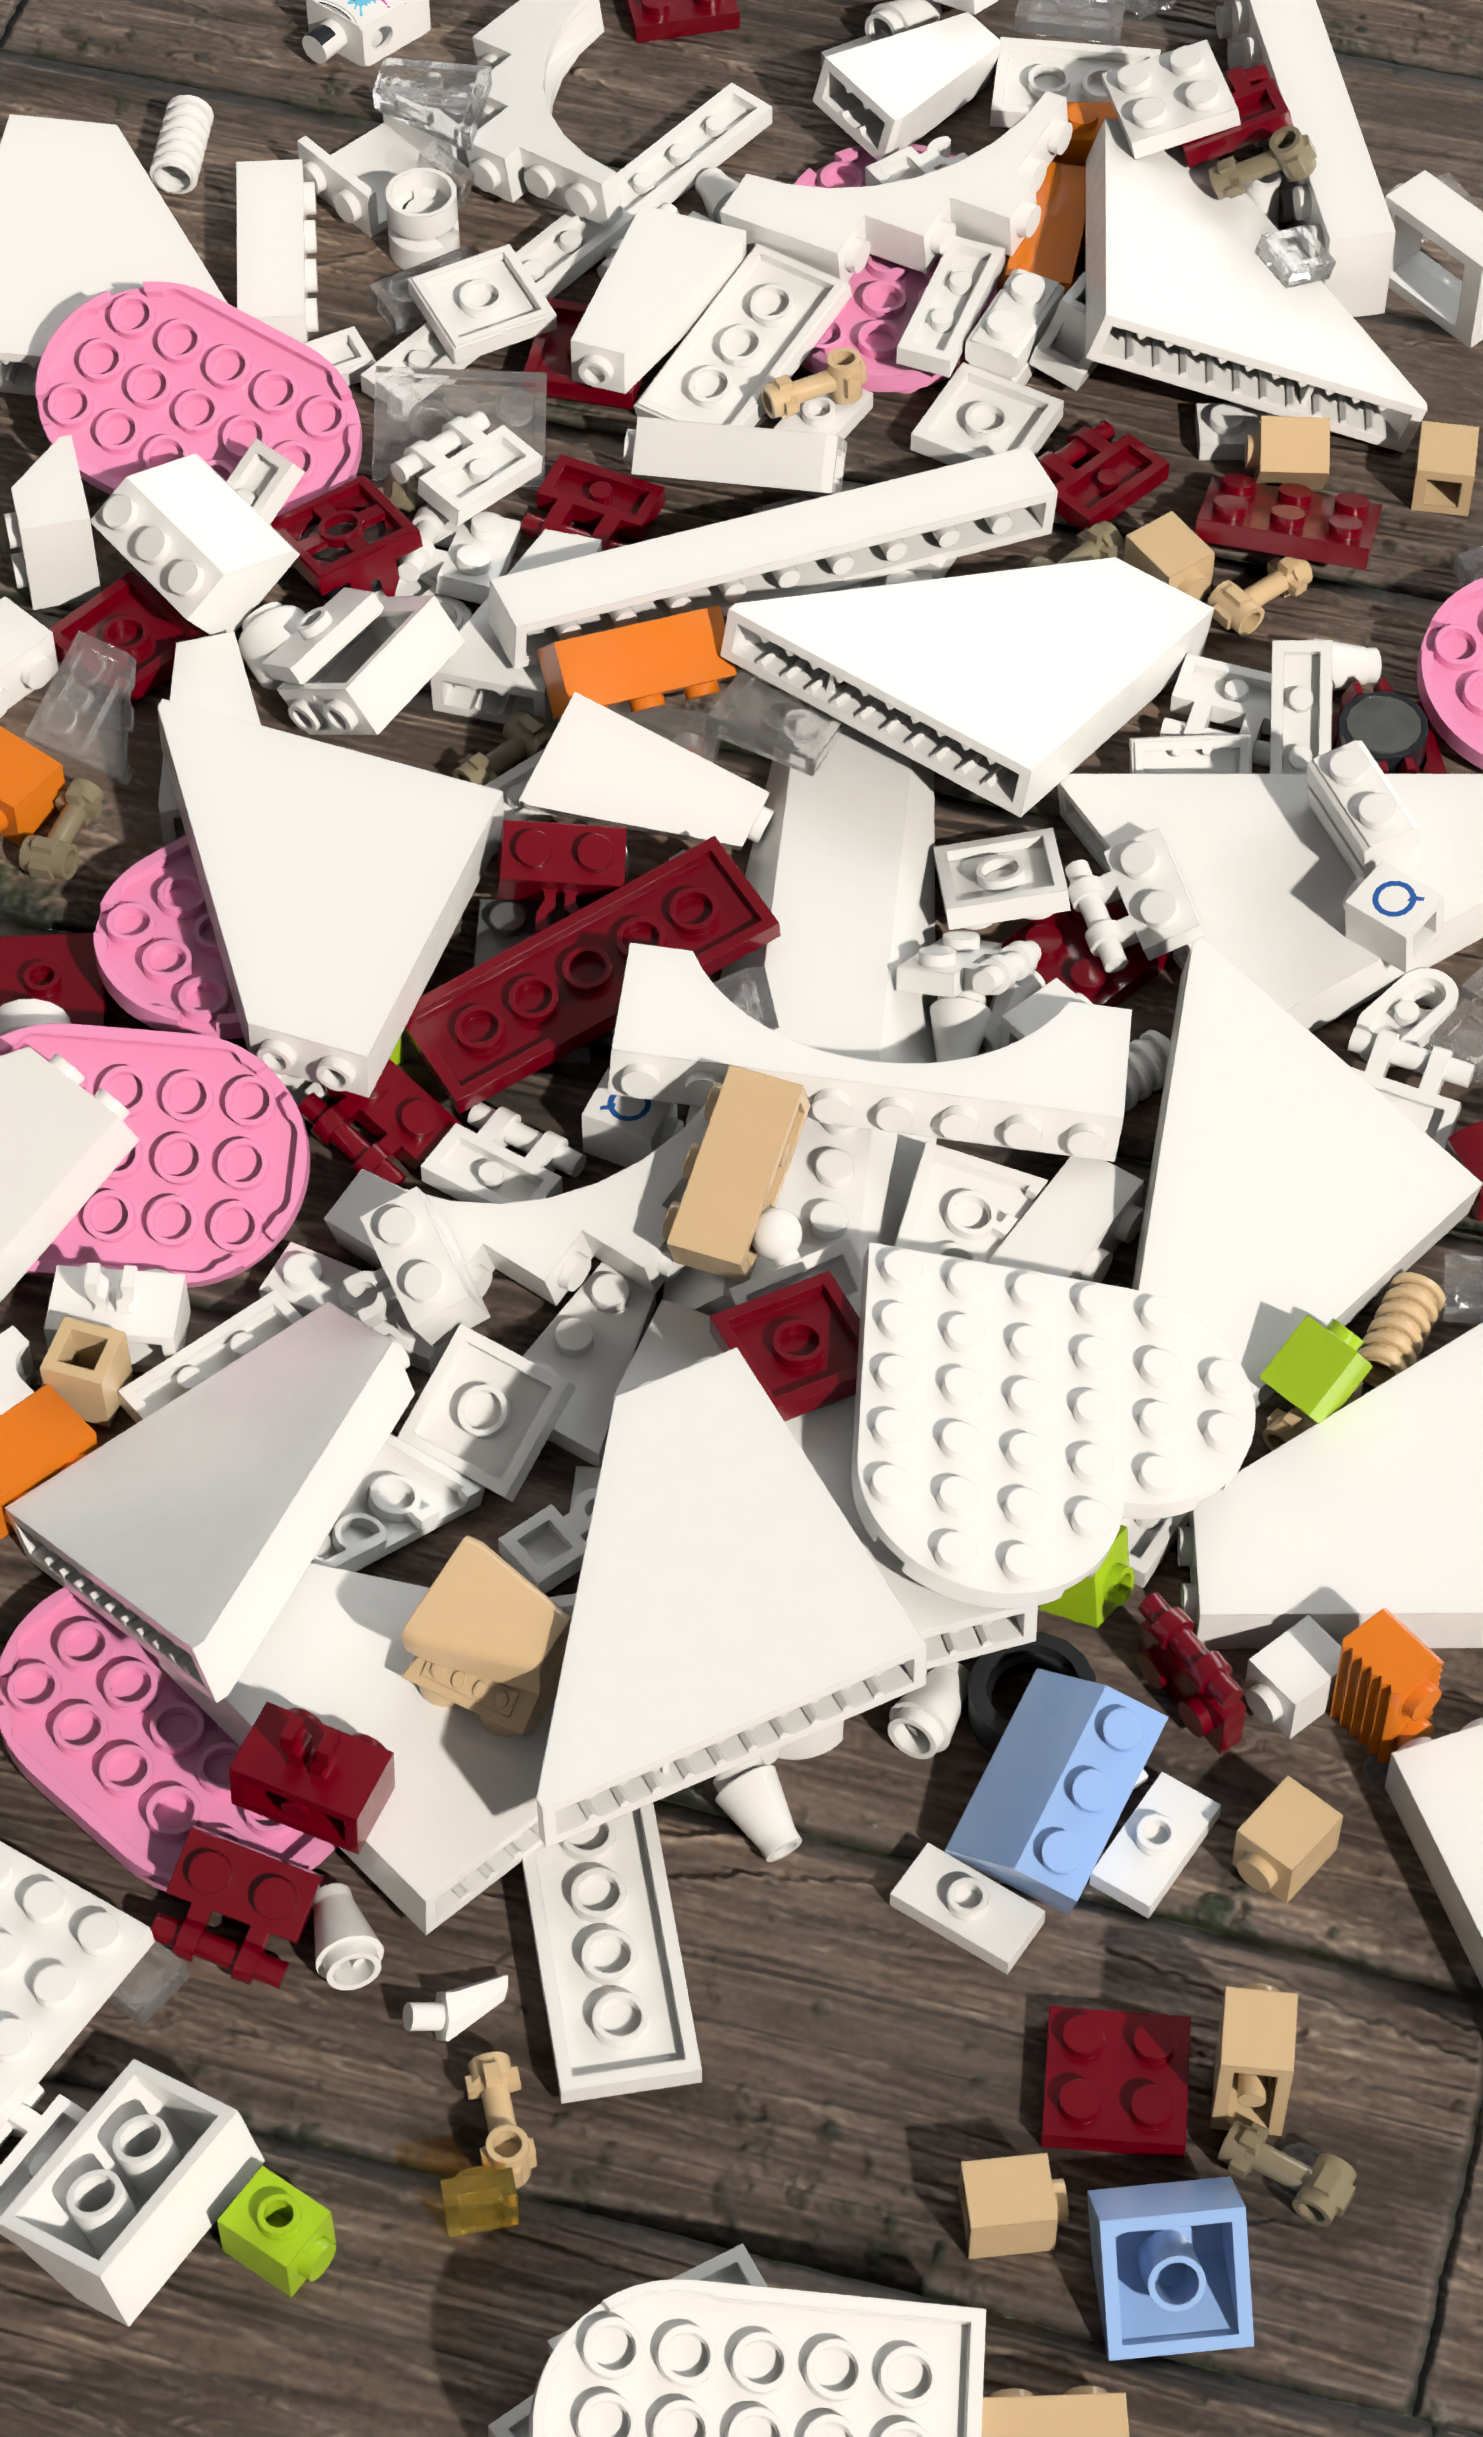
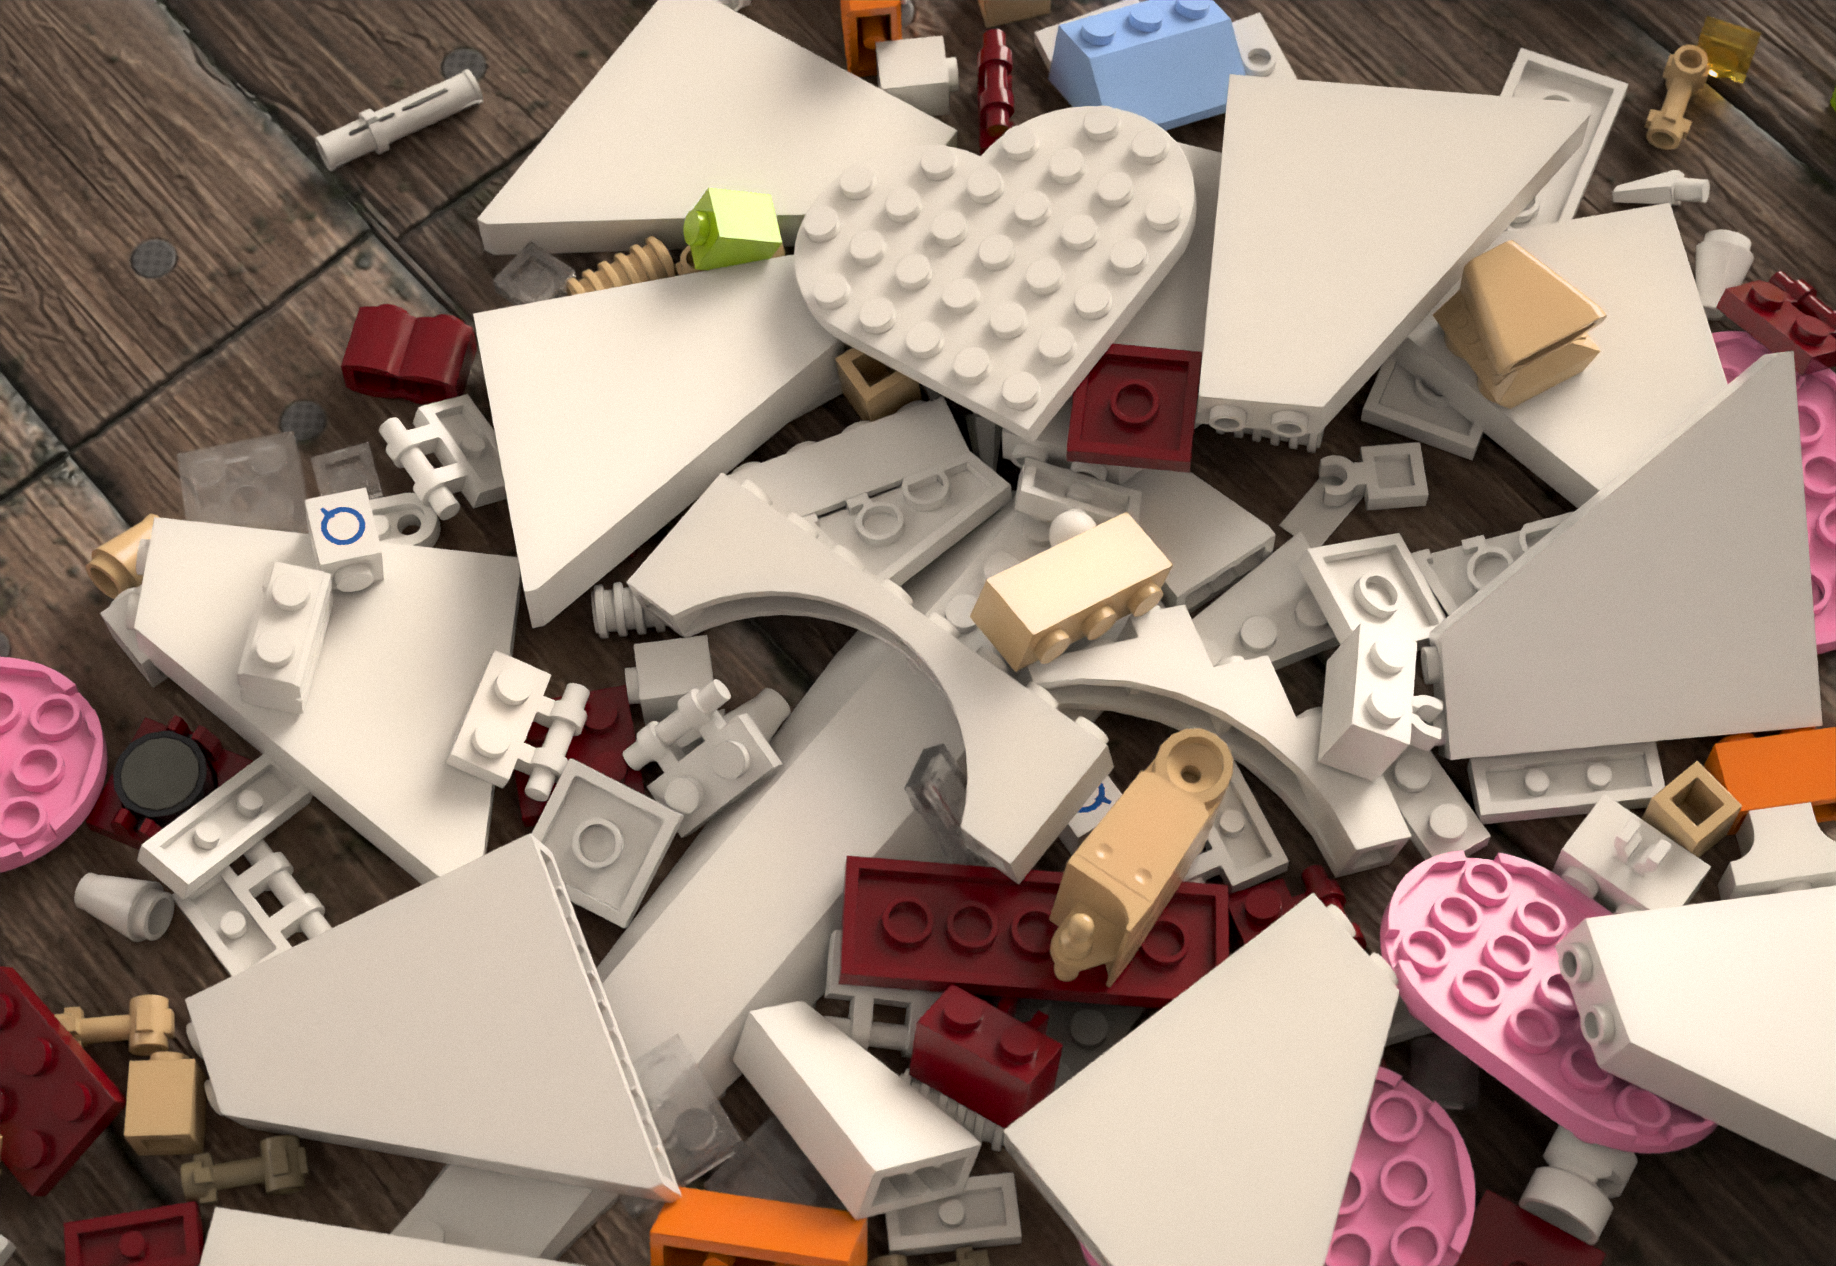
camera: 145 degrees left, 10 degrees up
(312, 1776) = (1715, 303): dark red brick -> none
(531, 1017) = (1138, 855): none -> tan piece
(1191, 754) = (336, 870): white plate -> none

